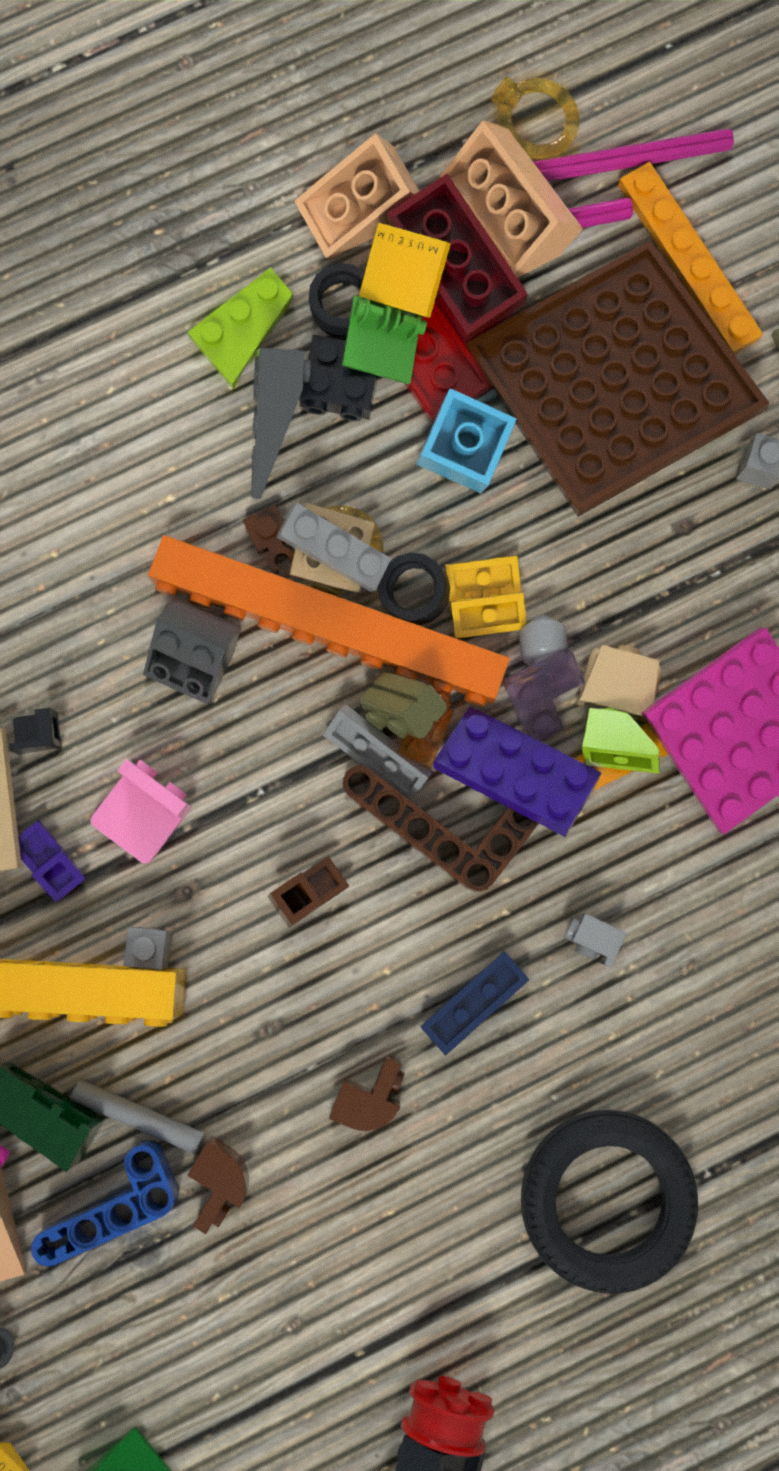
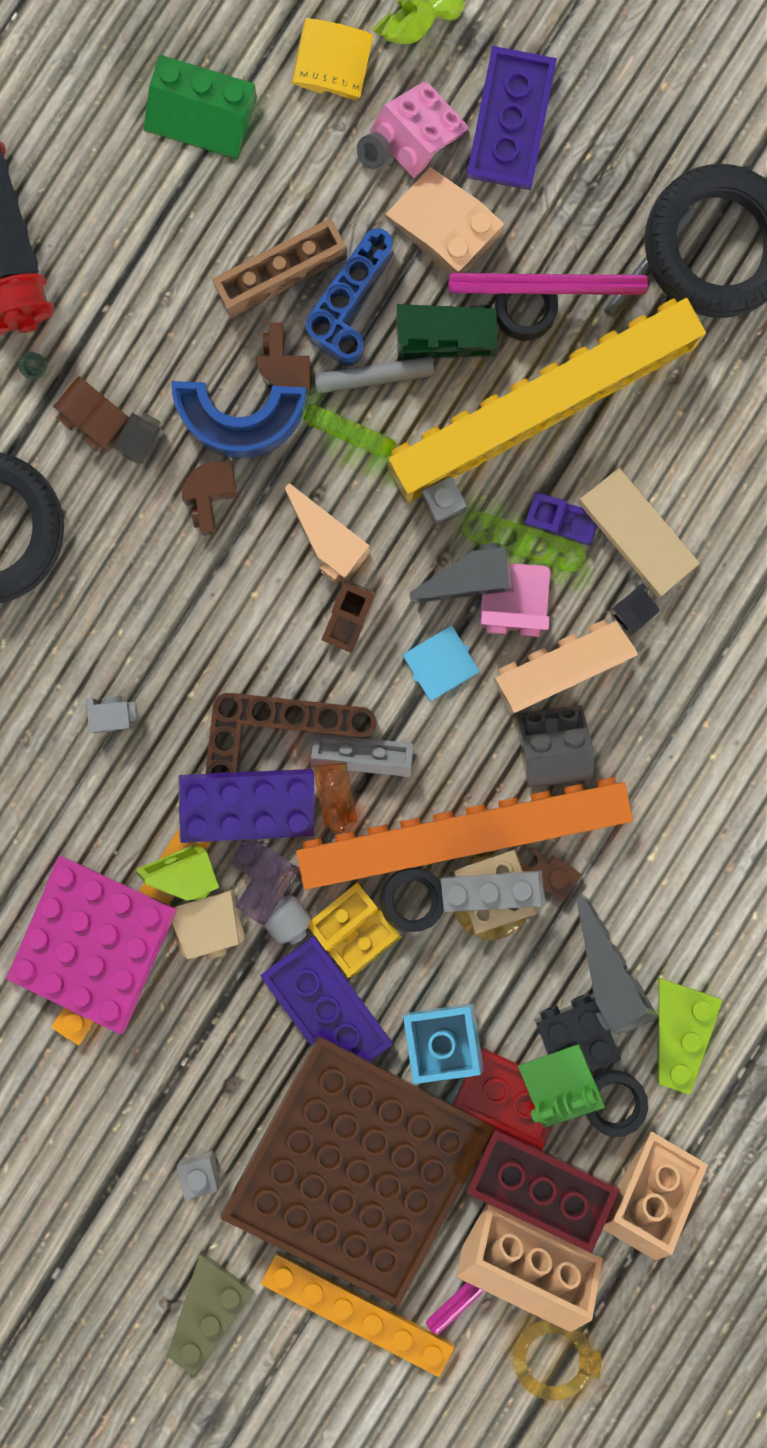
camera: 150 degrees right, 5 degrees up
(95, 865) = (524, 537): none -> clear neon green beam
(135, 716) = (564, 666): none -> light nougat slope
(159, 1284) = (280, 268): none -> medium nougat brick
(163, 857) = (472, 575): none -> dark grey slope
(196, 1074) = (349, 431): none -> clear neon green beam
(250, 795) = (441, 663): none -> medium azure piece
(281, 974) = (333, 544): none -> light nougat slope
(304, 1136) = (240, 435): none -> blue brick
(402, 705) = (364, 800): olive brick -> none
(404, 269) = (576, 1150): yellow slope -> none
(405, 1196) = (140, 439): none -> clear smoke brick
(437, 1250) = (91, 414): none -> reddish brown brick
(473, 1334) = (29, 371): none -> clear green hinge
(474, 1003) = (173, 611): dark blue plate -> none
(553, 547) = (324, 1001): none -> dark purple plate
(636, 155) = (455, 1376): dark pink axle -> none

